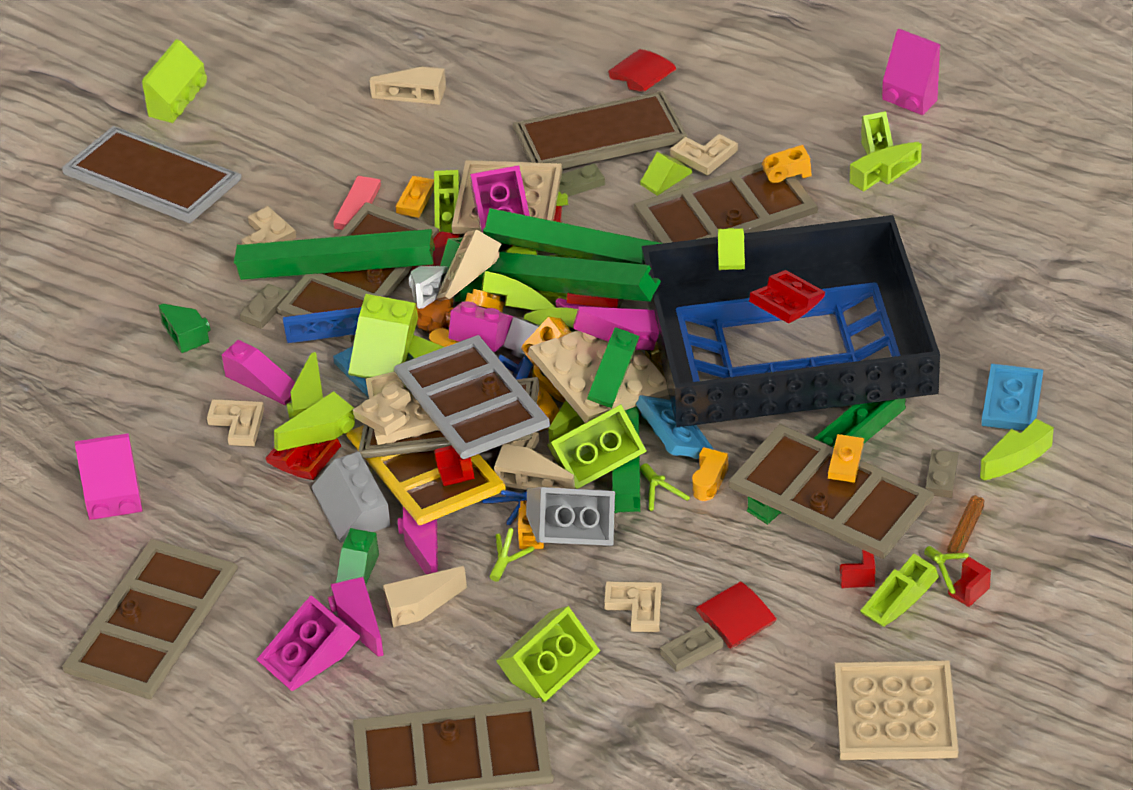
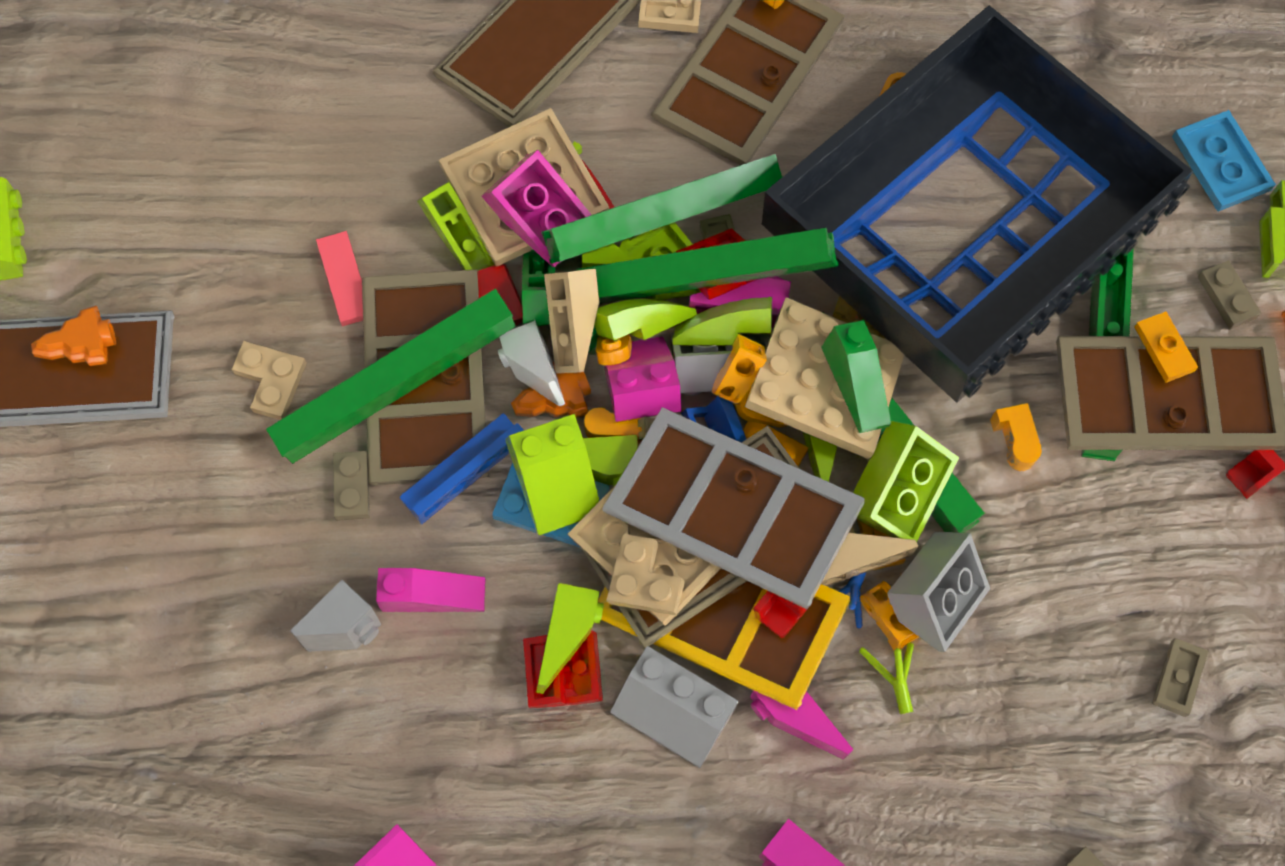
camera: 40 degrees left, 25 degrees up
(173, 159) = (78, 339): none -> orange rock
(184, 326) = (285, 575): green slope -> none
(189, 356) = (337, 622): none -> light grey slope
(242, 417) = (457, 663): tan plate -> none
(307, 388) = (516, 596): lime slope -> none
(358, 555) = (752, 793): green slope -> none
(410, 85) = (281, 76): tan slope -> none
(415, 196) = (406, 233): light orange plate -> none
(420, 596) = (857, 799): tan slope -> none
(549, 654) = (1050, 785): lime slope -> none
(581, 180) = (572, 107): olive plate -> none
(602, 321) = (830, 305): dark pink slope -> none
(641, 598) = (1082, 645): tan plate -> none
(654, 480) = (966, 475): lime plant -> none
(663, 173) = (653, 57): lime slope -> none
(677, 441) = (967, 416): dark azure plate -> none
(731, 248) = (870, 144): lime slope -> none
(736, 614) = (1186, 604): red slope -> none
(787, 296) = (983, 181): red slope -> none

